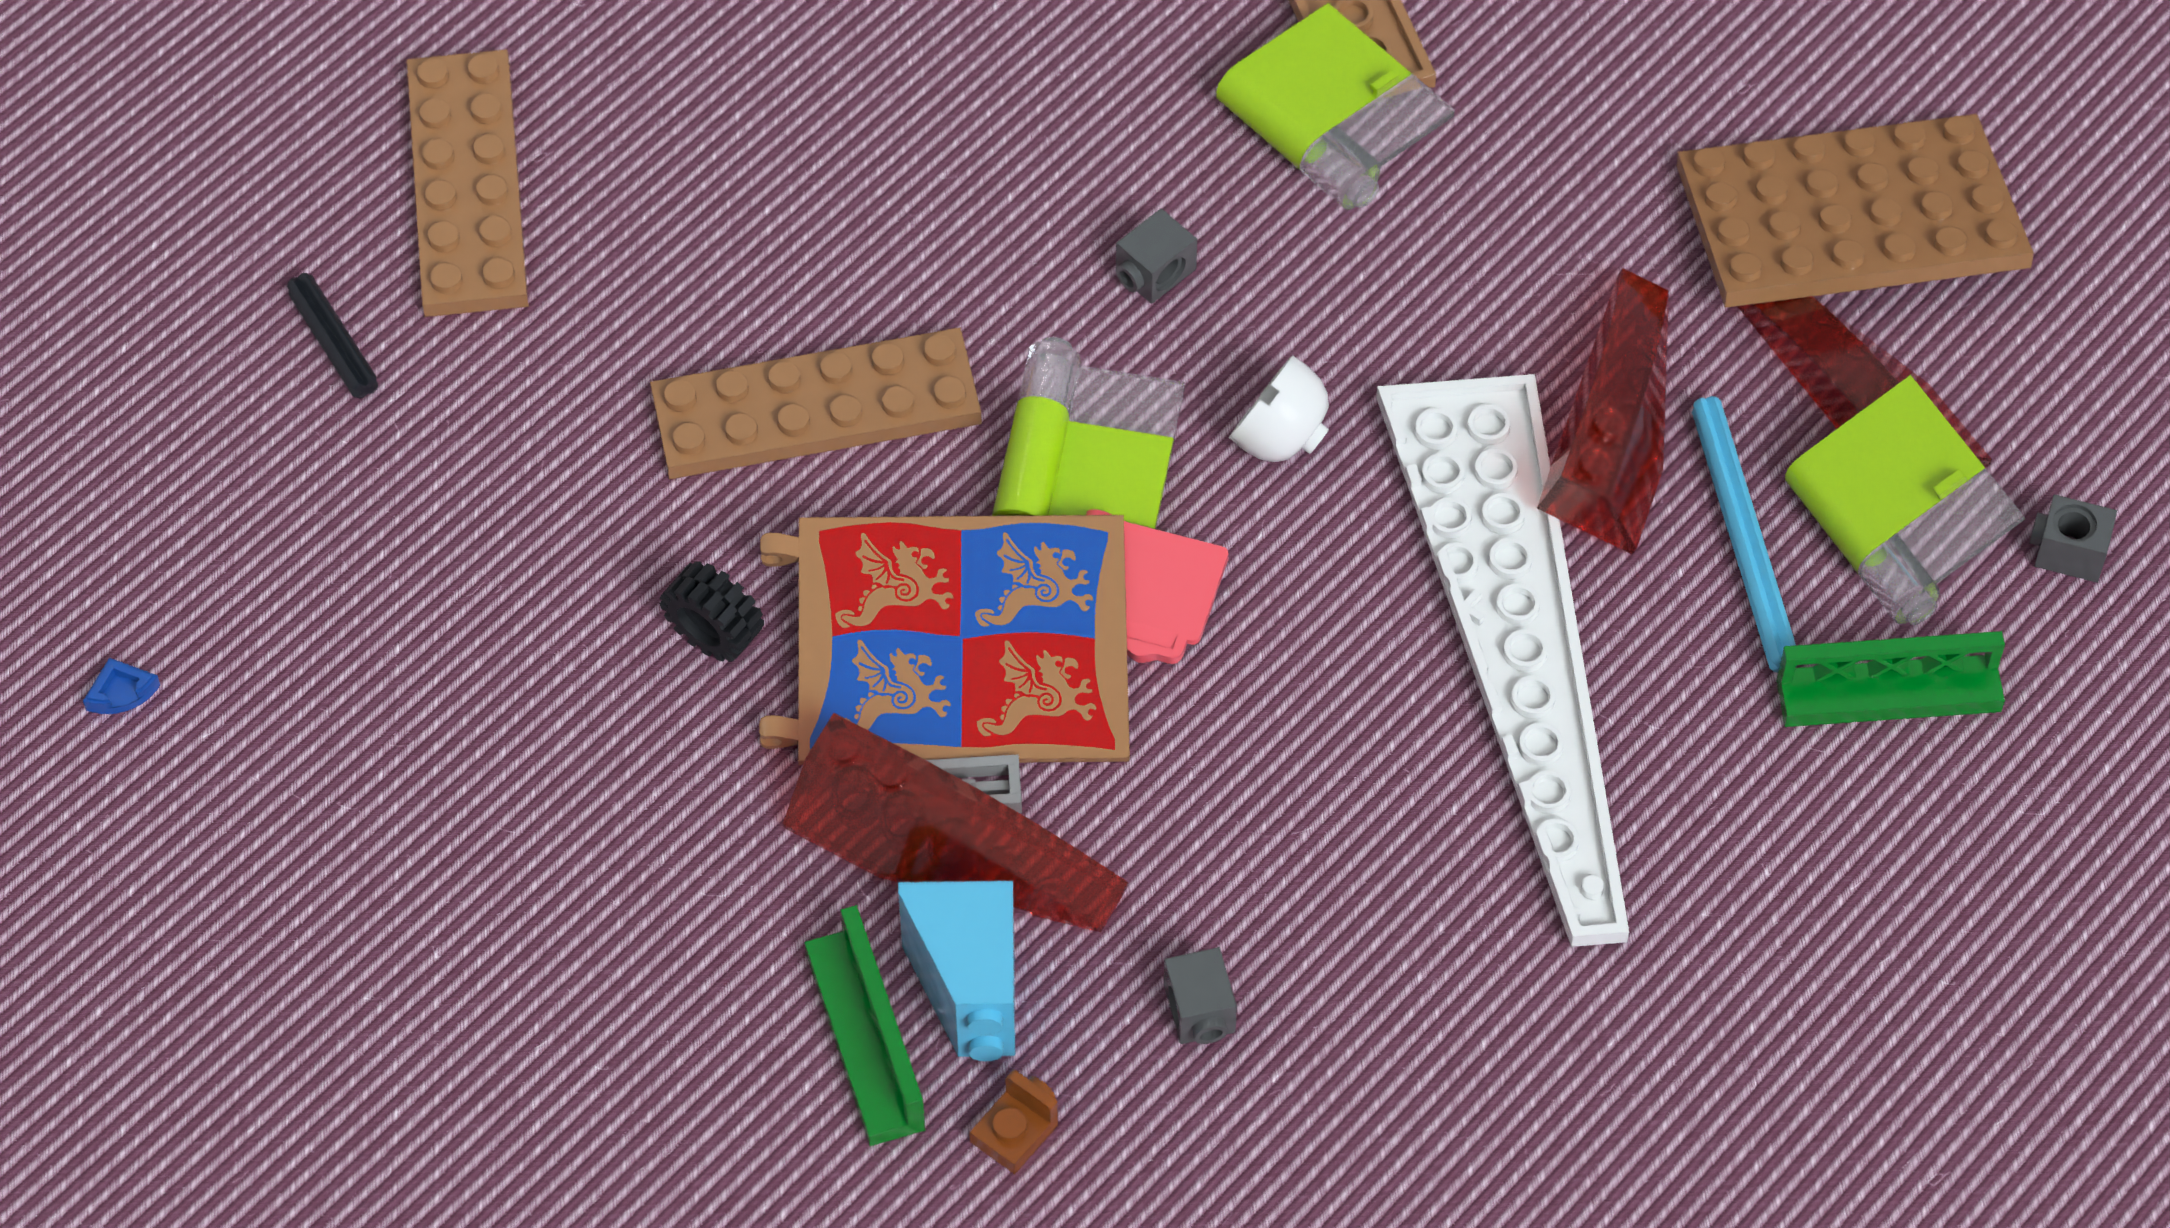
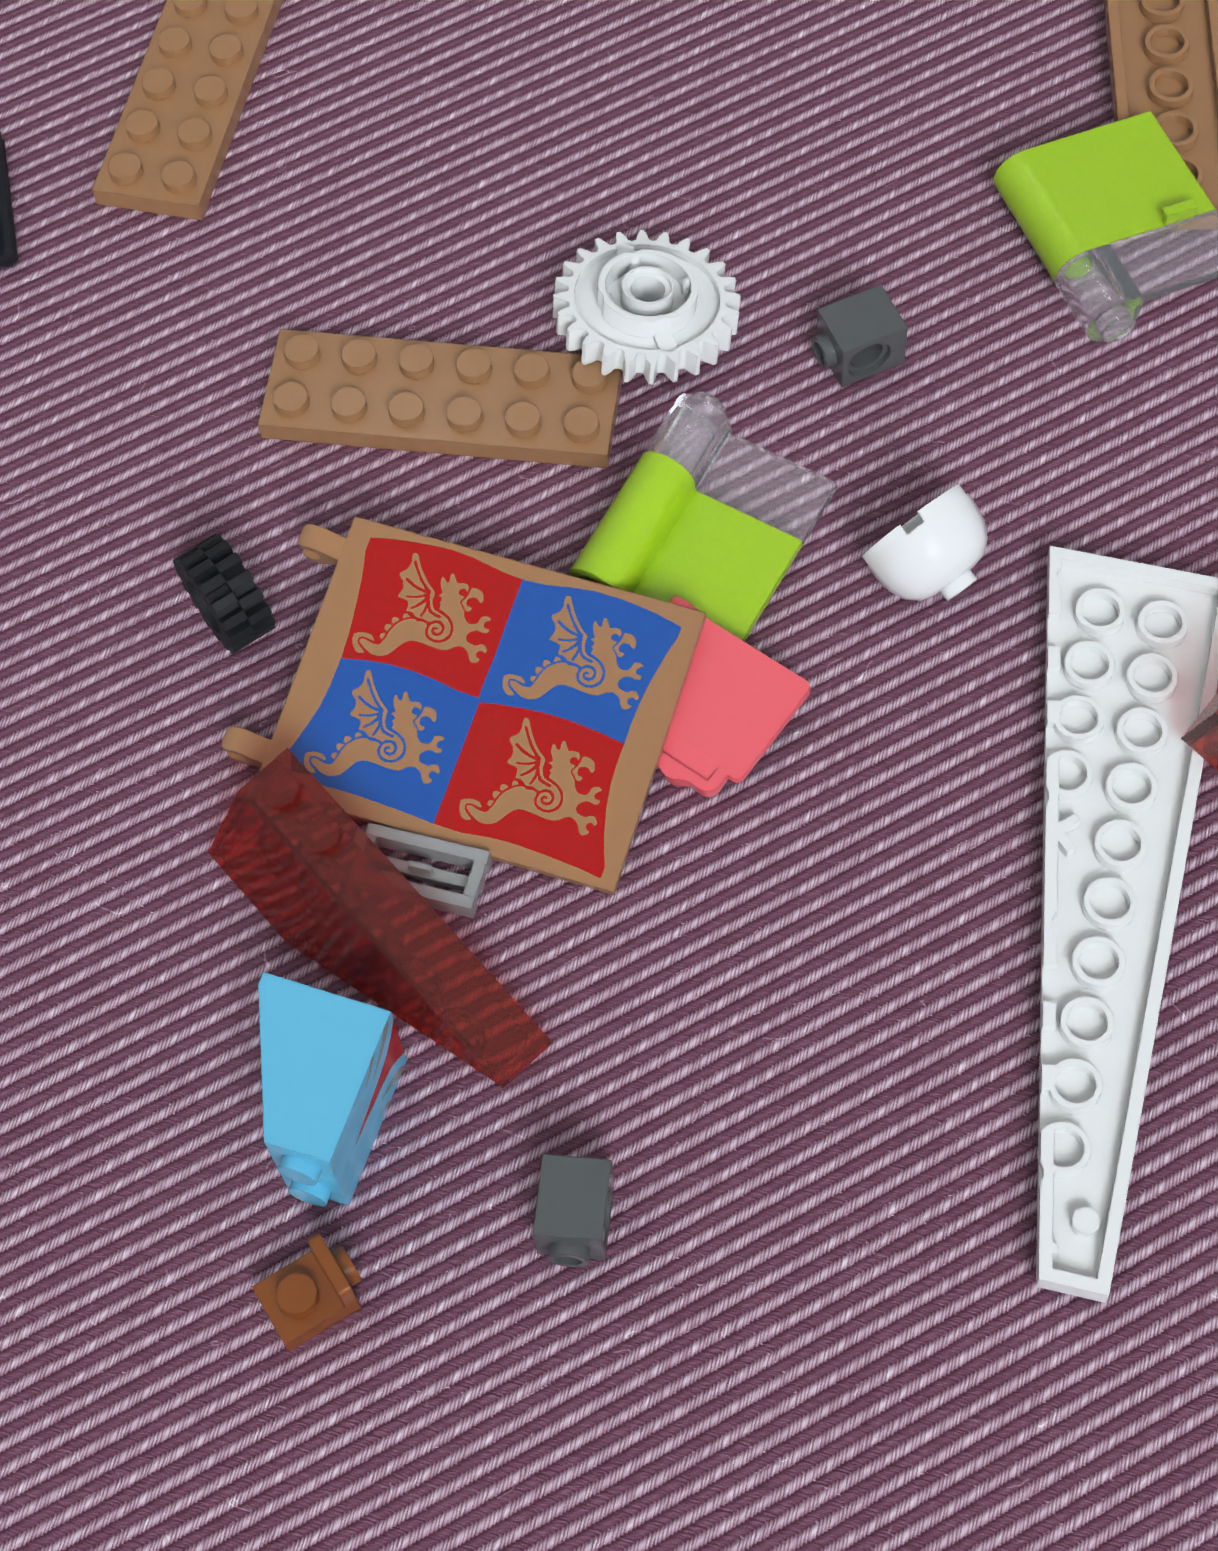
camera: 25 degrees right, 5 degrees up
(866, 1031) = (191, 1127): green fence -> none
(965, 278) = (646, 306): none -> white gear

